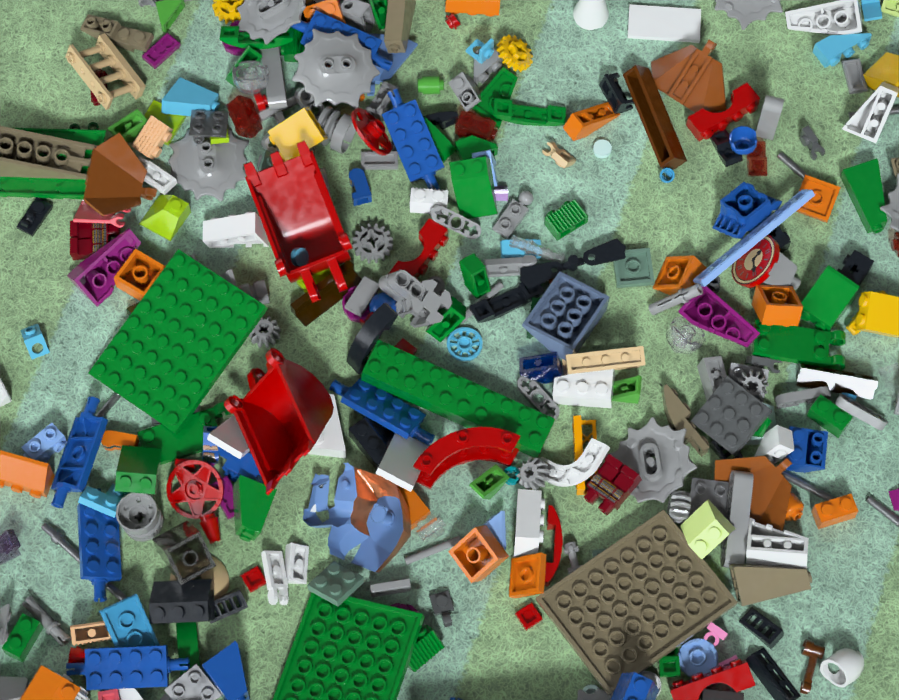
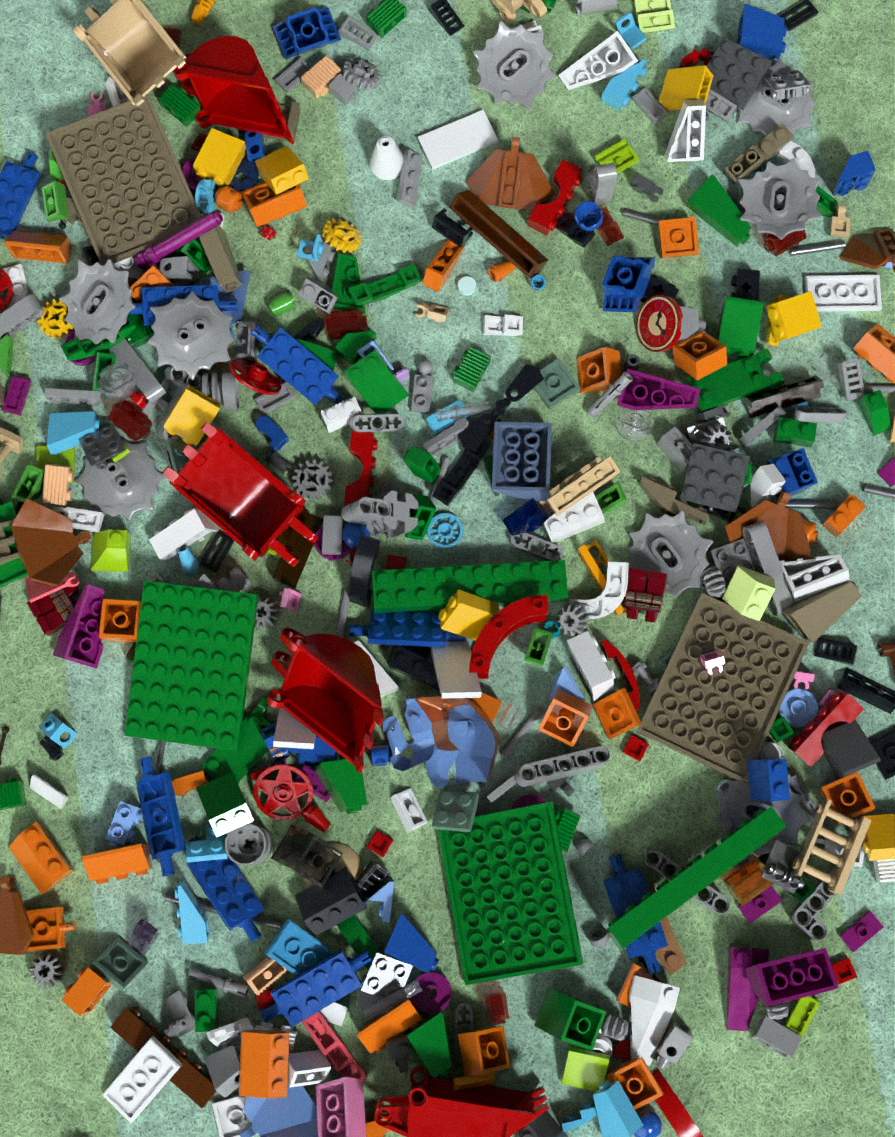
camera: 25 degrees left, 10 degrees up
(21, 355) = (52, 749): none -> black pin
(27, 665) = (230, 1033): none -> white wing
(56, 554) = (194, 920): none -> medium azure slope
(208, 74) = (74, 397): none -> light grey plate
(226, 257) = (188, 562): none -> medium azure cone
(232, 624) = (385, 895): none -> light blue slope
(257, 269) = (209, 566): none -> black tile
(275, 576) = (398, 832): white hinge -> none
(295, 333) = (290, 600): none -> bright pink tile
(296, 502) = (380, 755): none -> blue leg
(299, 256) = (256, 528): medium azure tile -> none
(335, 368) = (343, 614): none -> light grey bar
(351, 214) = (278, 462): none -> dark grey pin
(433, 674) = (583, 845): none -> light grey hinge
(439, 417) = (467, 614): none -> yellow brick
(461, 591) = (556, 772): none -> light grey beam
(602, 35) = (409, 178): none -> light grey plate
(614, 197) = (505, 325): none -> white slope
(638, 150) = (500, 271): none -> orange cone
(638, 569) = (711, 660): none -> tile
(754, 237) = (648, 303): light blue tile -> none
(799, 106) = (620, 154): none -> lime plate

